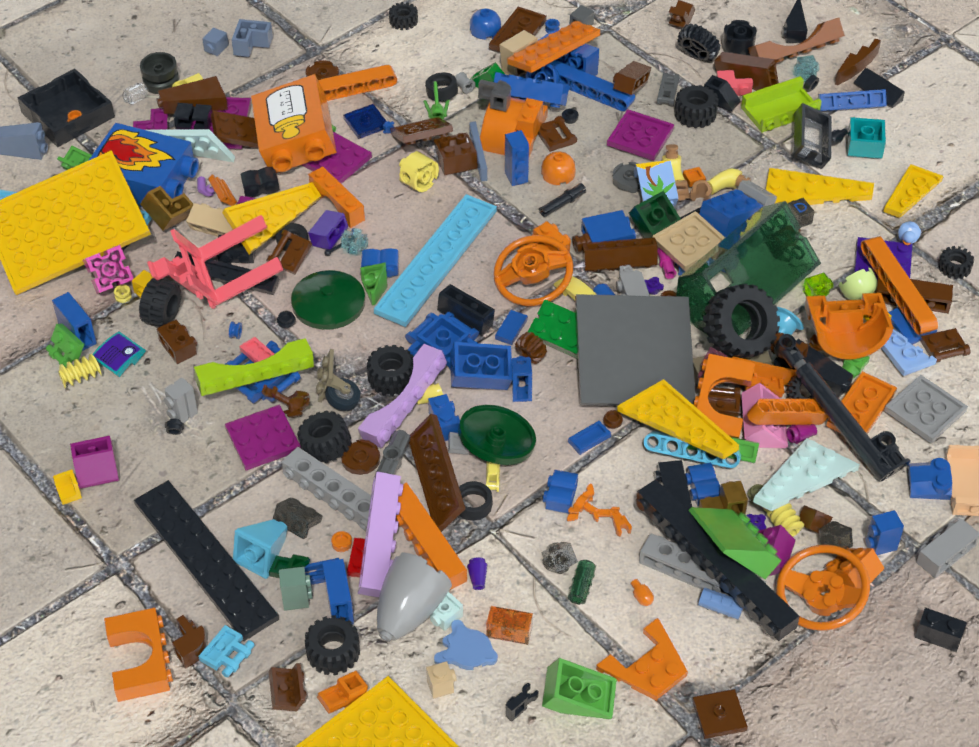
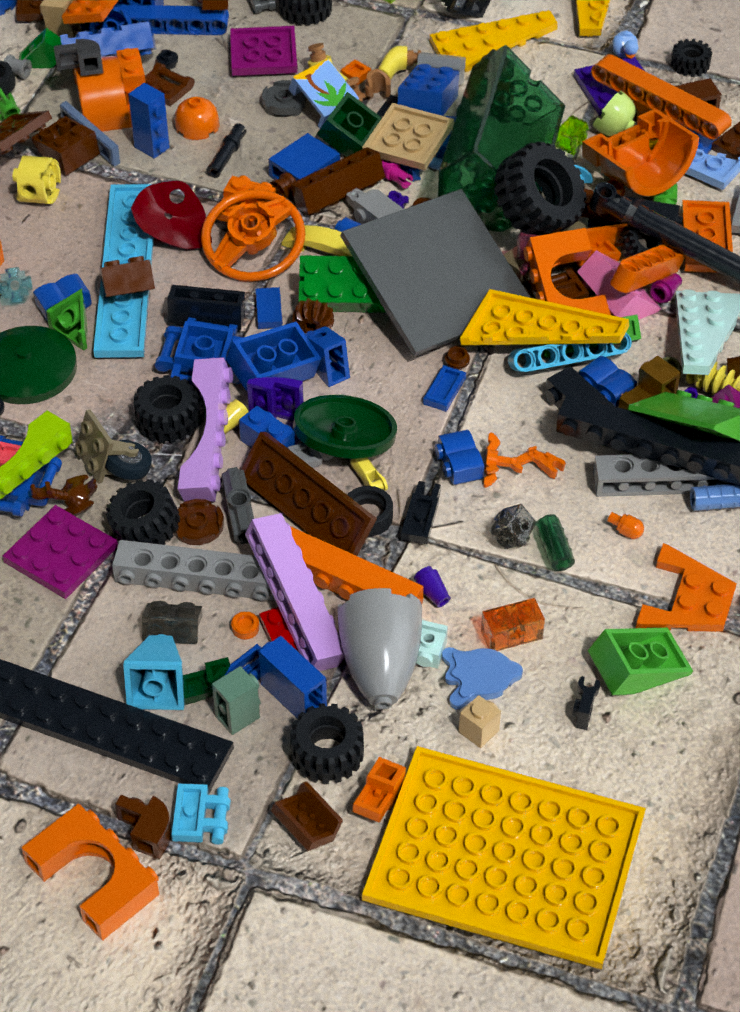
camera: 30 degrees left, 0 degrees up
(426, 267) = (127, 277): none -> reddish brown slope
(462, 392) = (275, 395): none -> dark purple slope
(474, 228) = (187, 217): none -> dark red piece
(507, 519) = (421, 514): none -> black hinge

